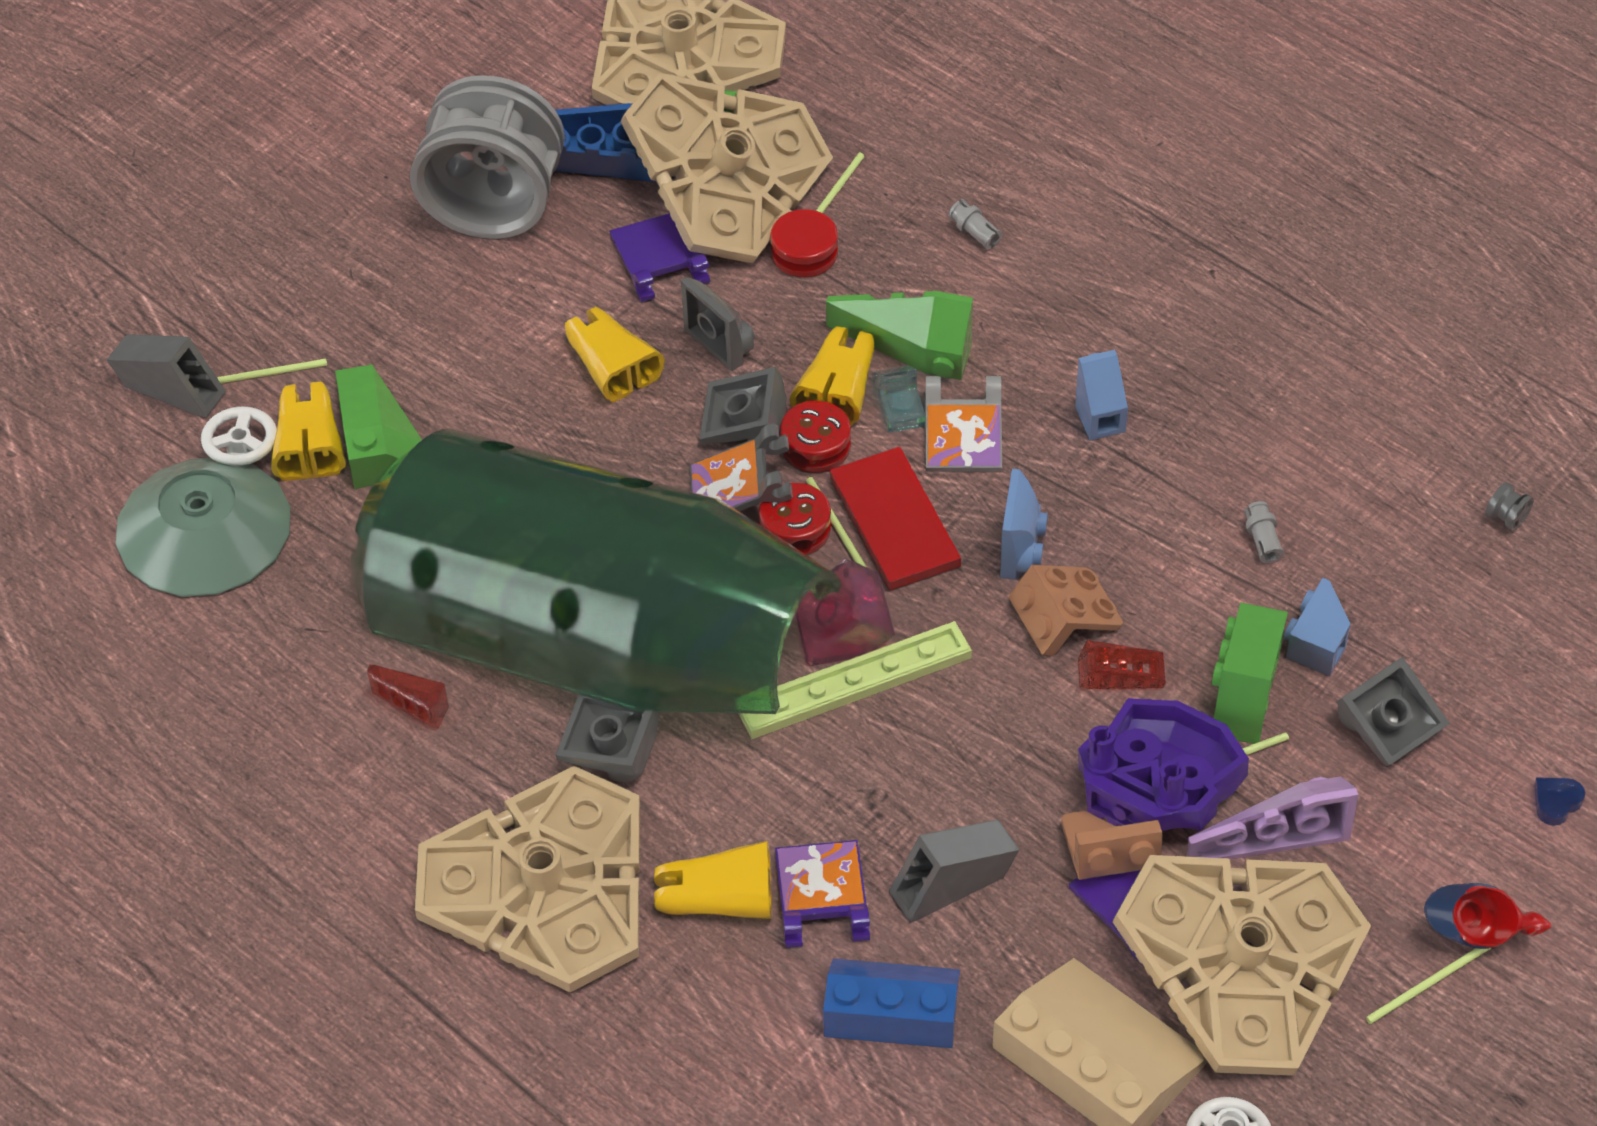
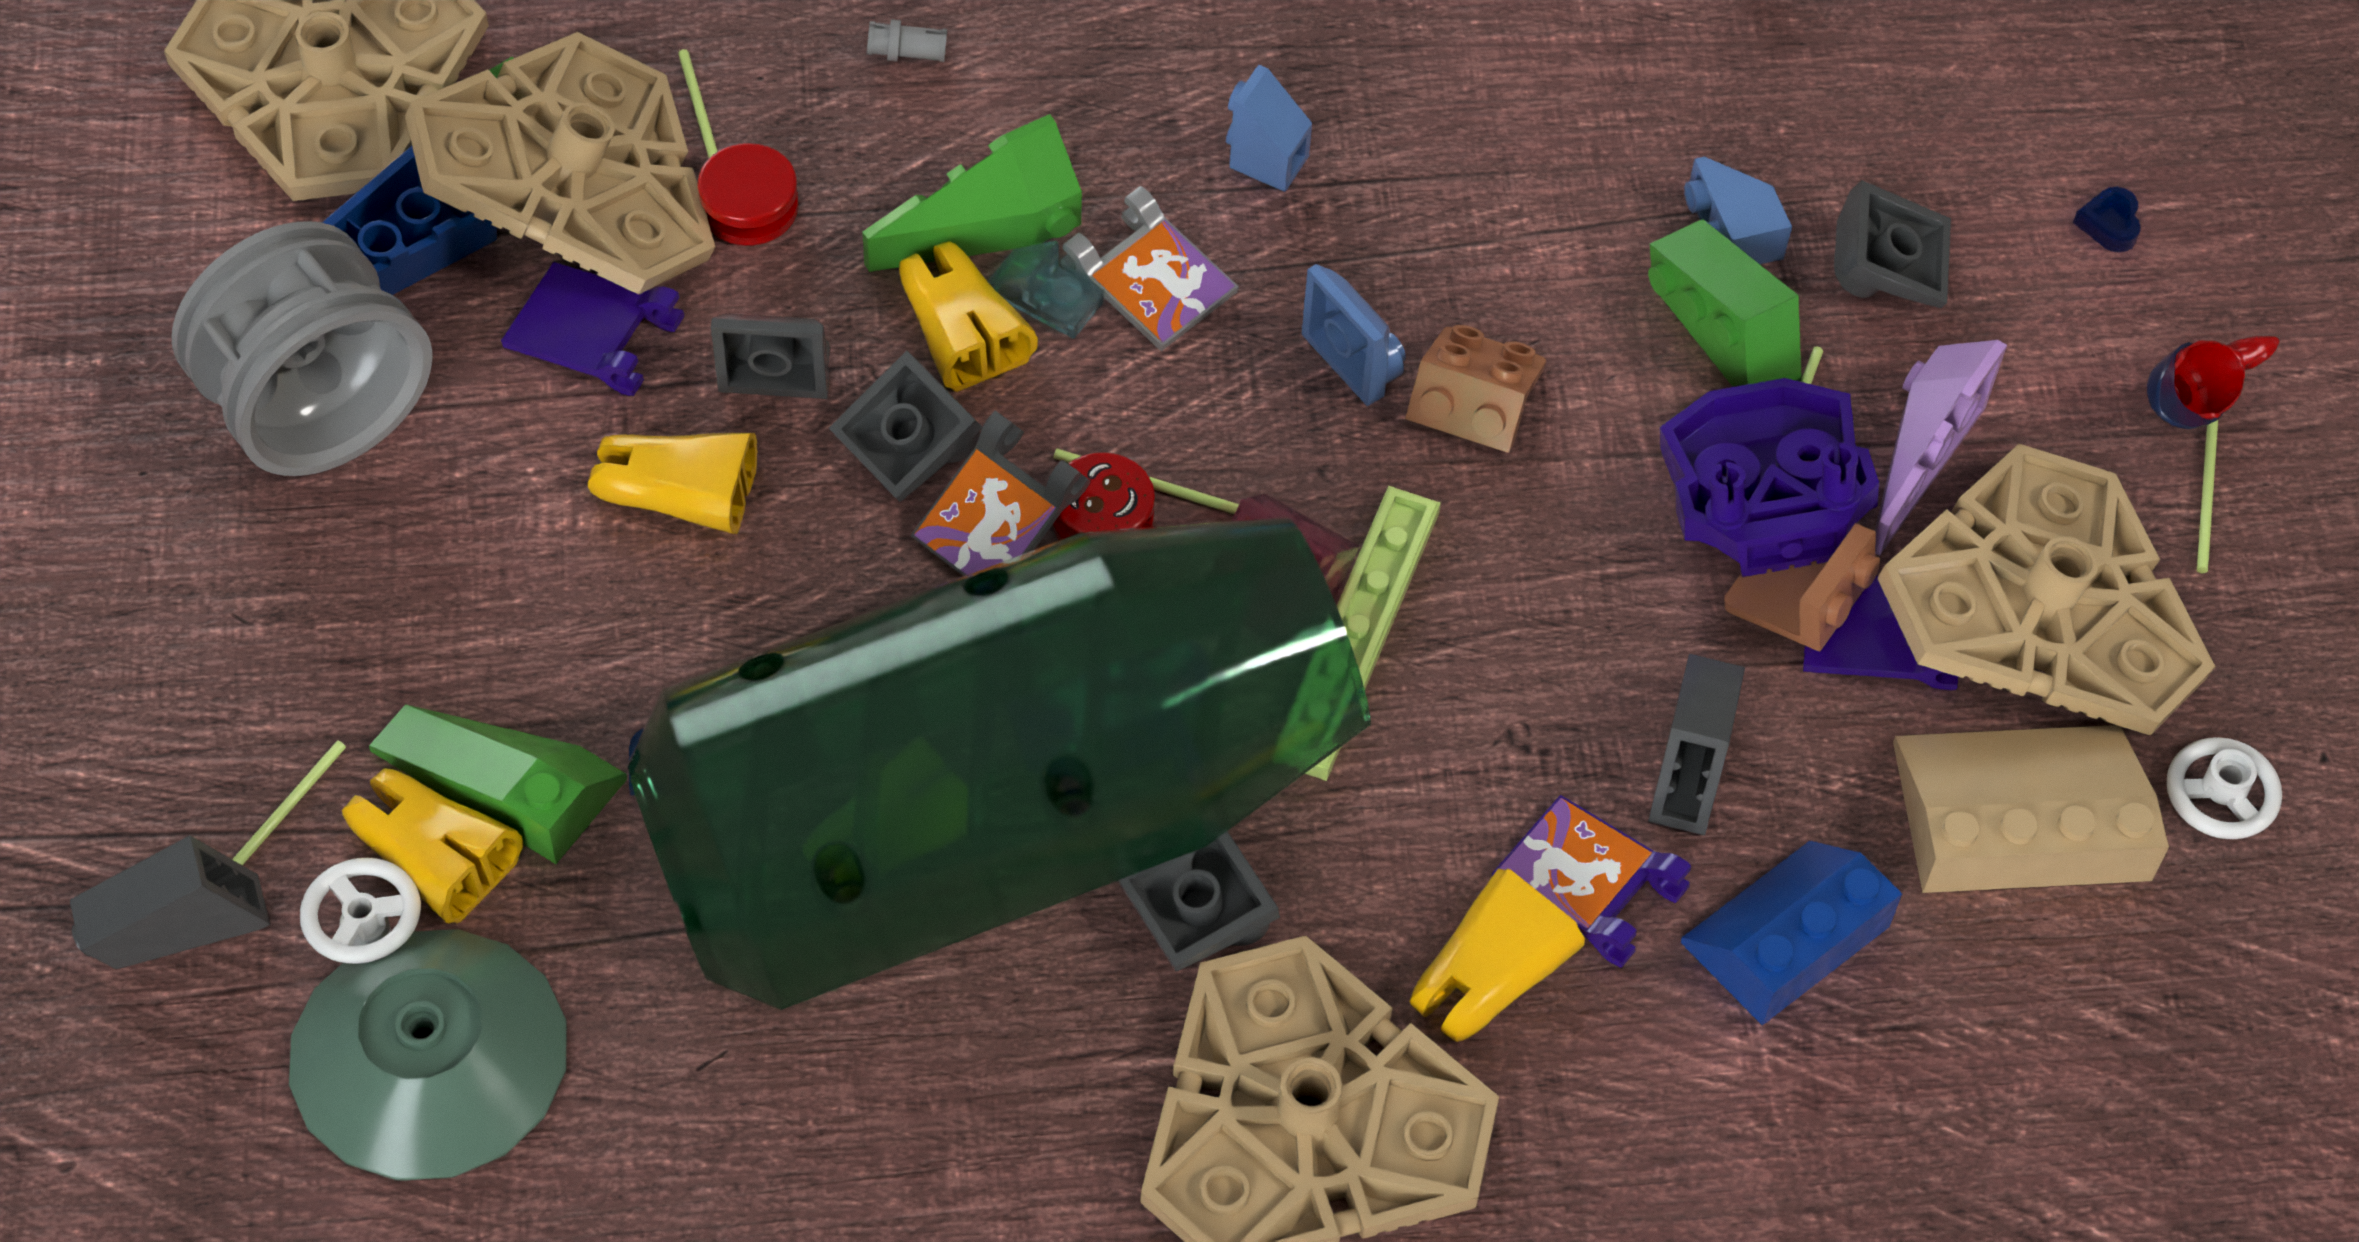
camera: 50 degrees left, 5 degrees up
(410, 693) = (927, 1037): clear red slope -> none
(816, 436) = (1024, 389): red head -> none
(895, 518) = (1195, 424): red tile -> none
(1105, 677) = (1577, 430): clear red slope -> none
(1262, 526) = (1562, 153): light grey pin -> none

